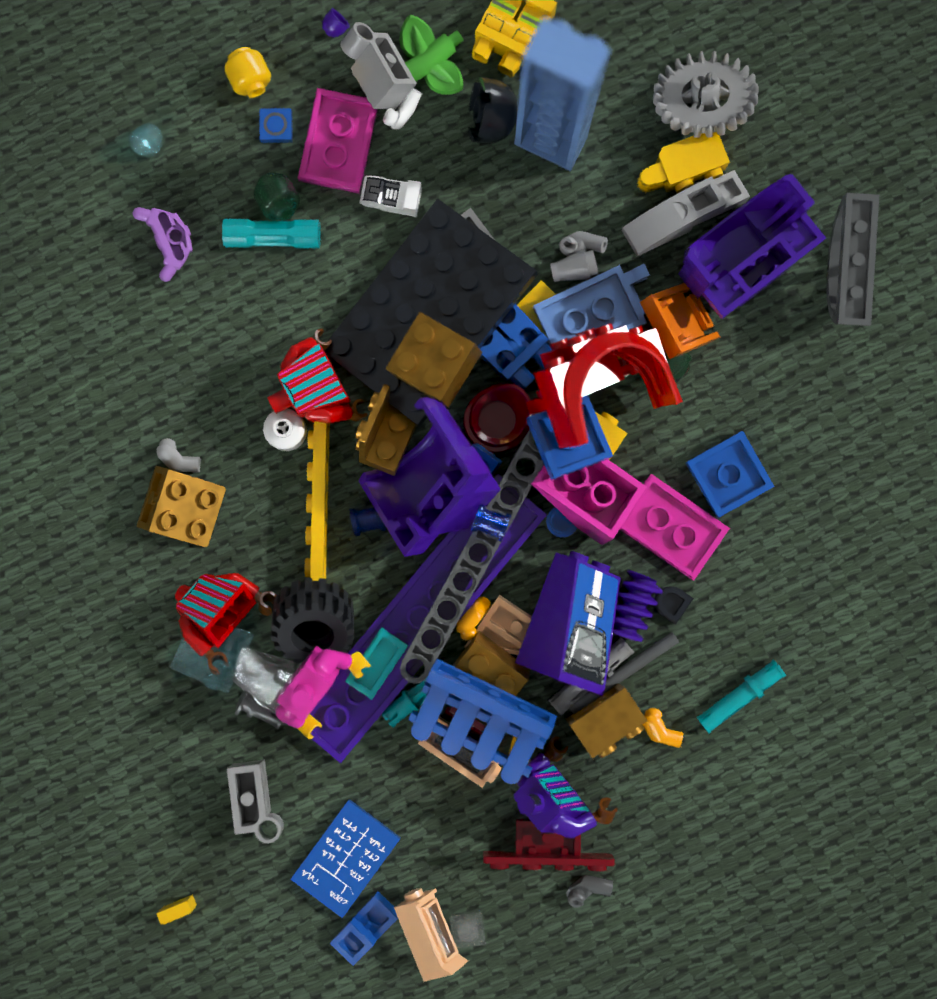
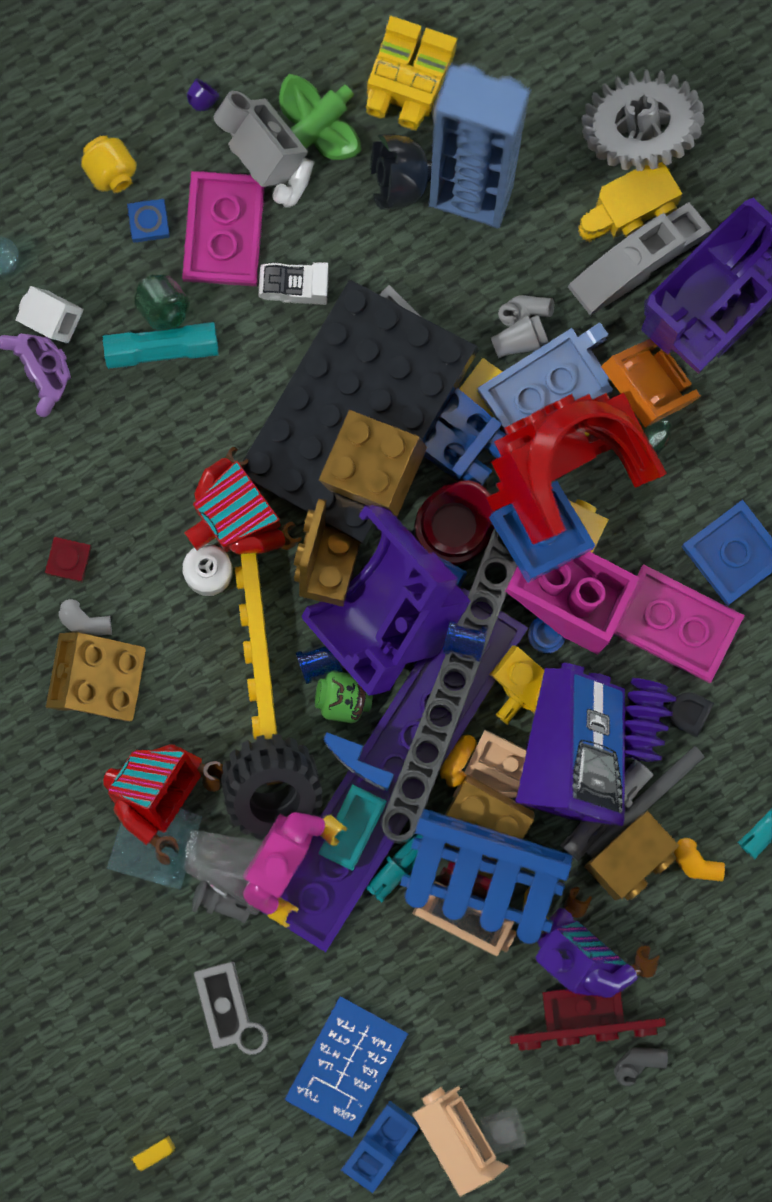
camera: 10 degrees left, 5 degrees down
(171, 404) = (68, 559): none -> dark red plate
(180, 194) = (48, 314): none -> white brick
(381, 603) = (349, 754): none -> blue slope
(382, 553) = (341, 698): none -> bright green head
(535, 559) = (521, 681): none -> yellow plate

